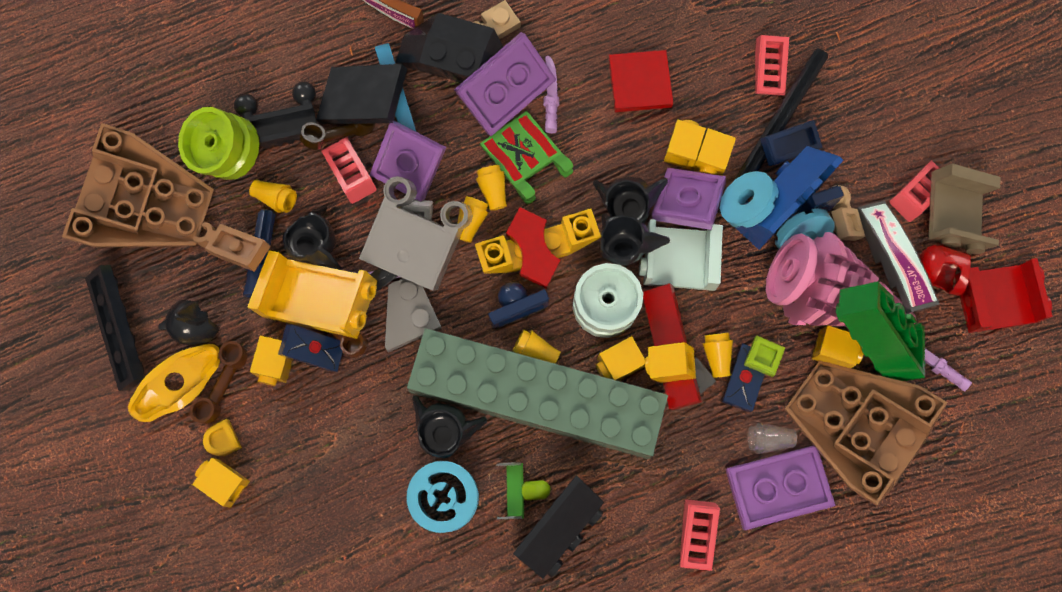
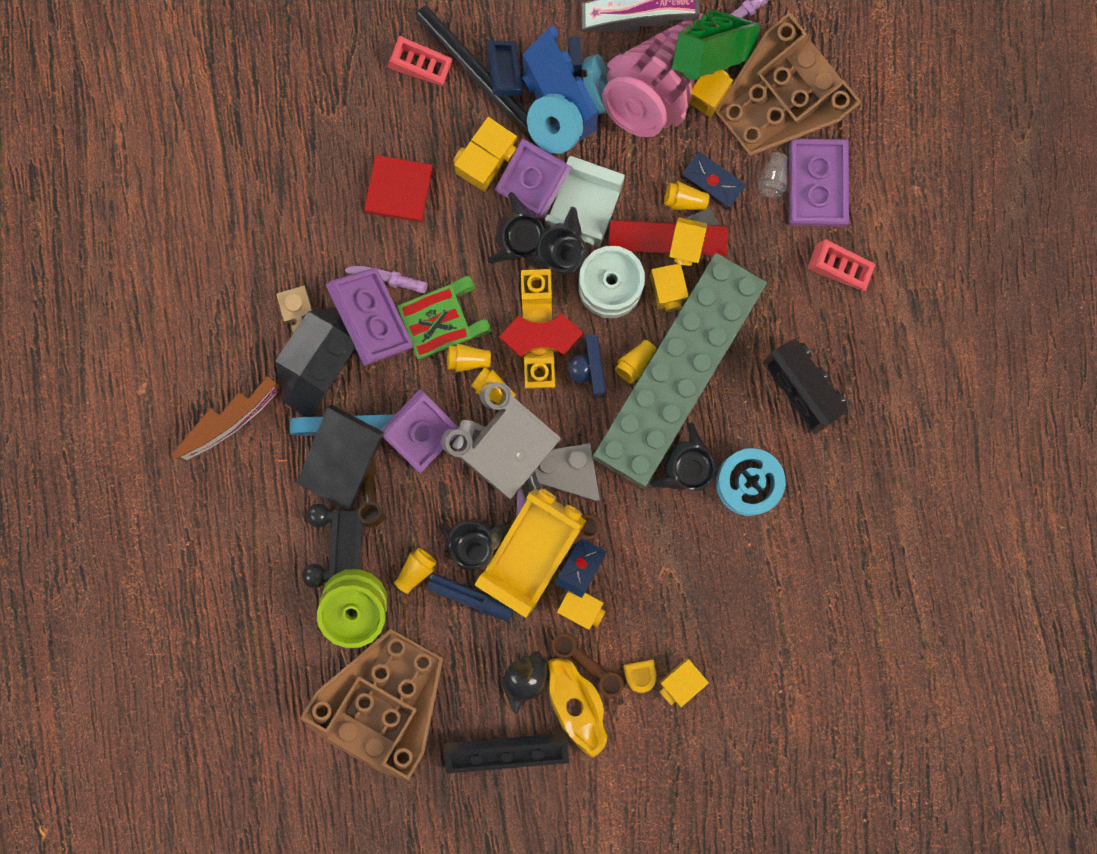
camera: 70 degrees left, 5 degrees up
(233, 246) = (459, 619): medium nougat plate -> none
(358, 185) = (432, 486): coral slope -> none
(518, 491) = (761, 413): piece -> none
(764, 356) = (700, 157): lime tile -> none
(847, 219) = (591, 42): tan plate -> none

